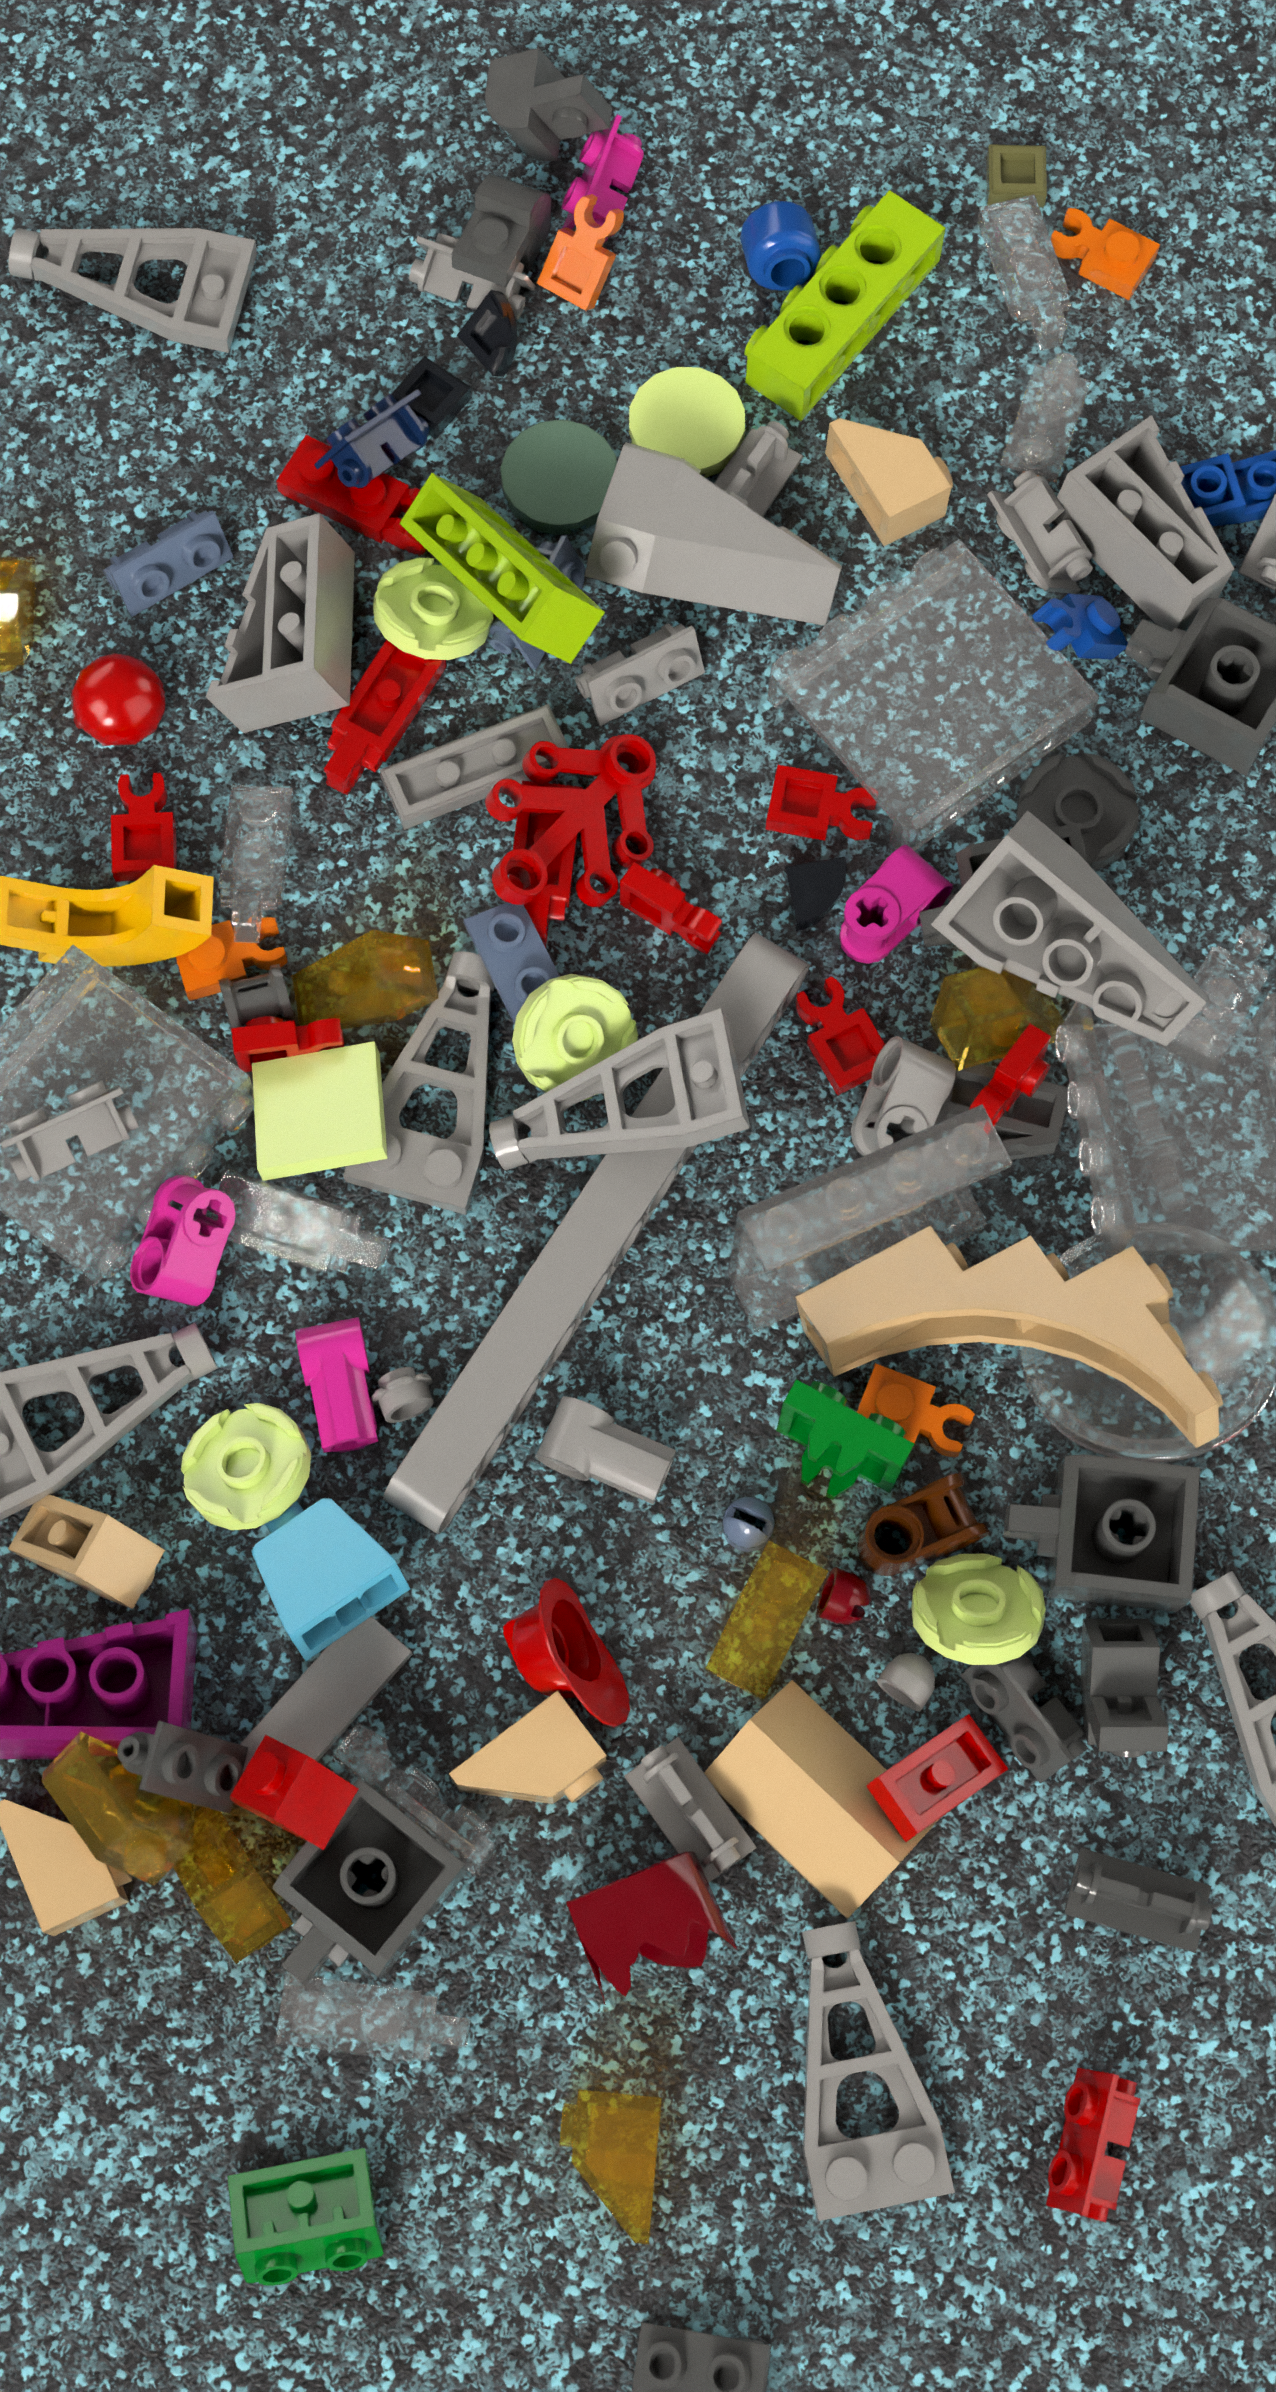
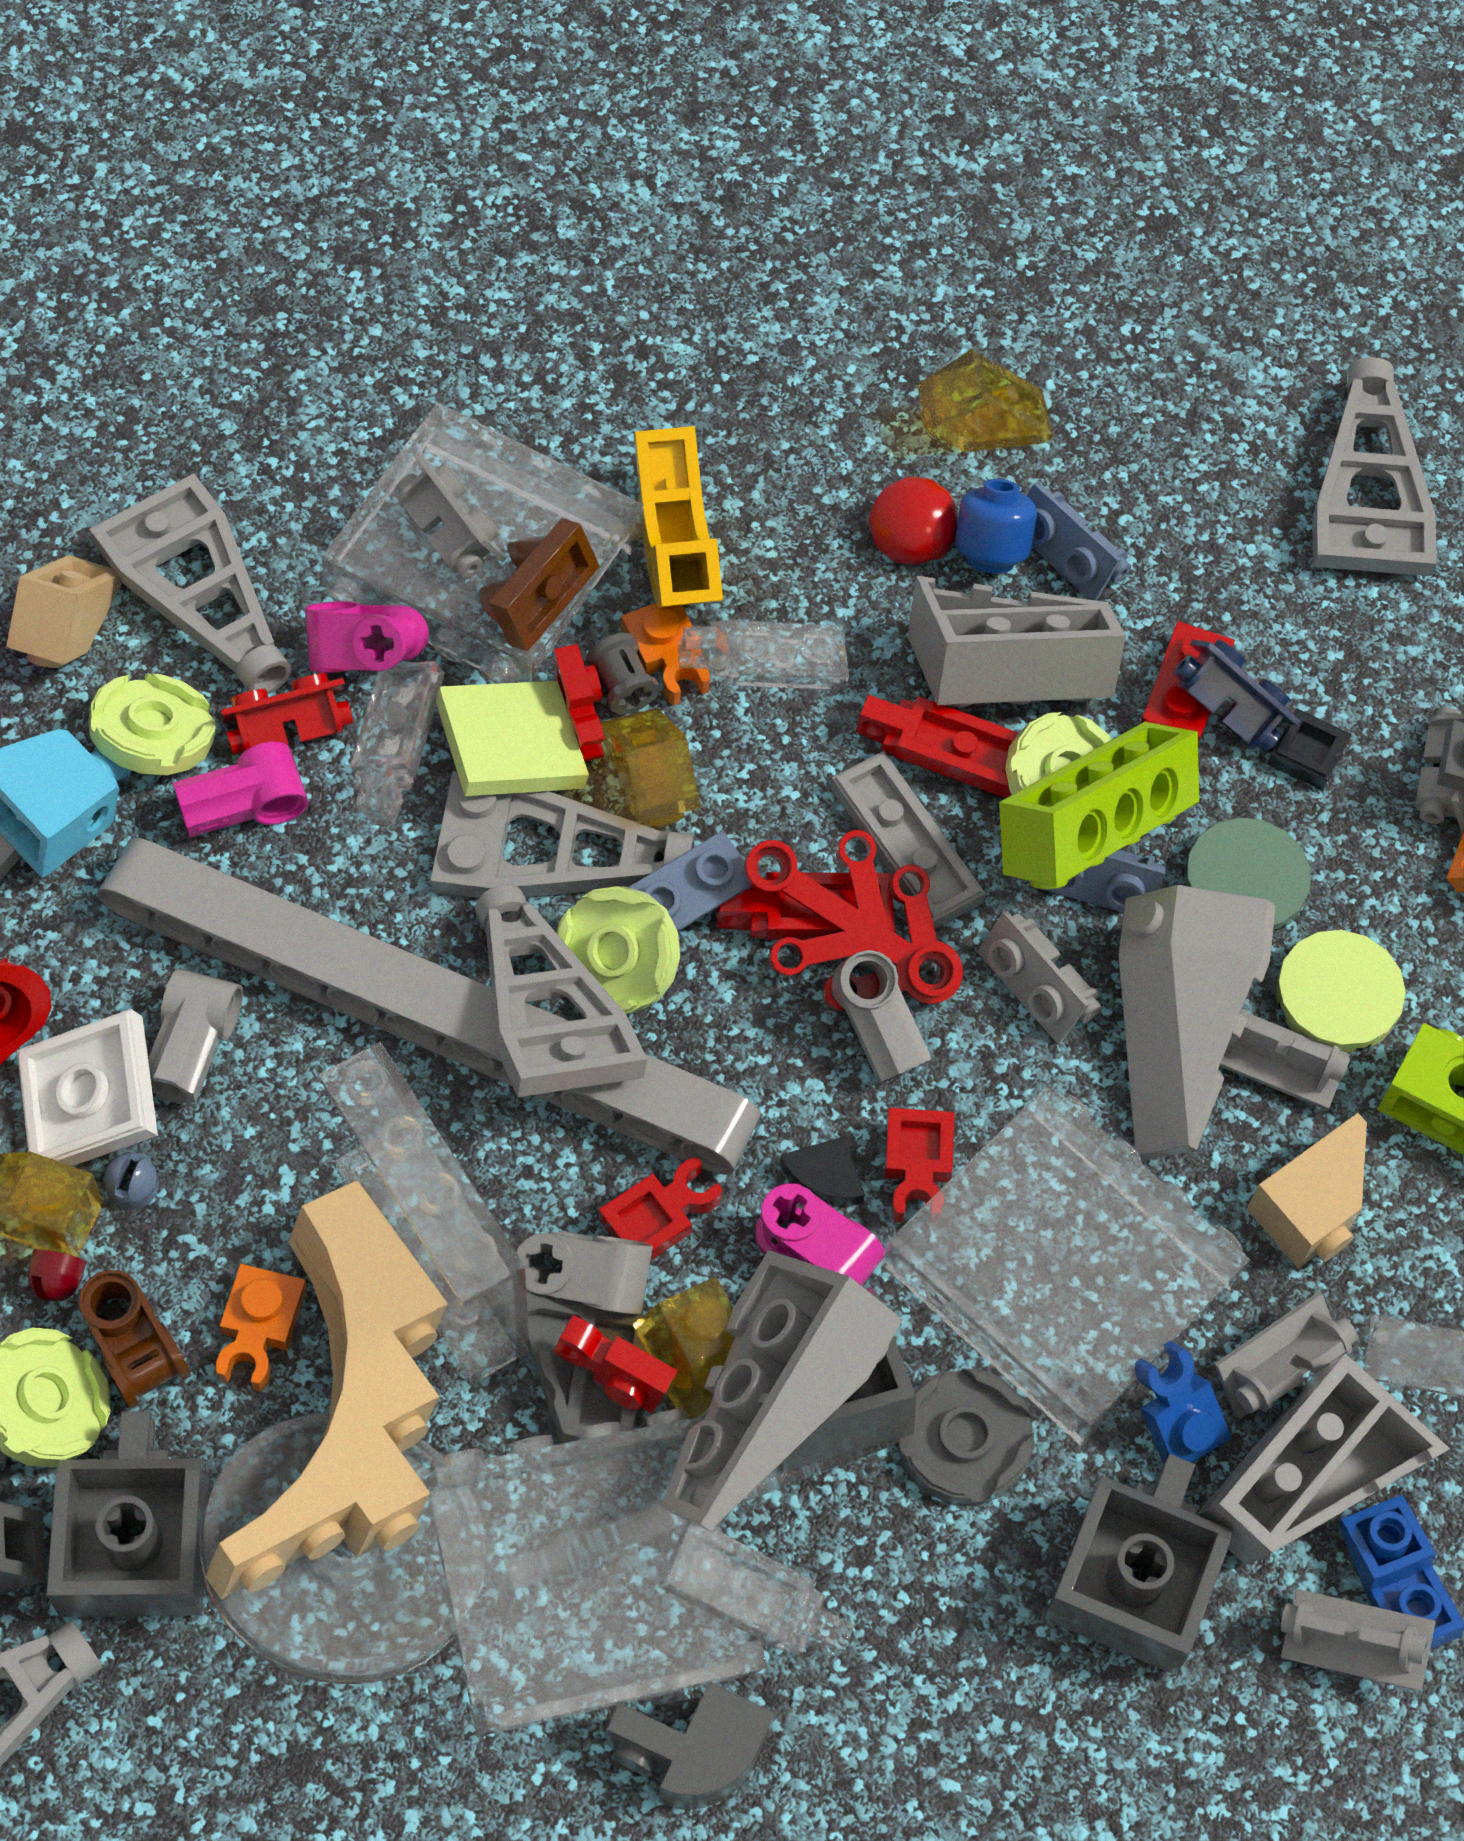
camera: 80 degrees right, 10 degrees down
(144, 834) = (773, 562): red plate -> none
(149, 1031) = (546, 581): none -> reddish brown tile
(150, 619) = (995, 526): none -> blue head
(243, 1309) = (308, 704): none -> red hinge
(403, 1394) = (236, 849): light grey plate -> none
(492, 333) = (1392, 791): black tile -> none
(661, 902) = (783, 1016): red plate -> none
(661, 1554) = (88, 1090): none -> white plate
(675, 811) = (880, 1023): none -> light grey piece
(842, 1439) = (206, 1235): green piece -> none

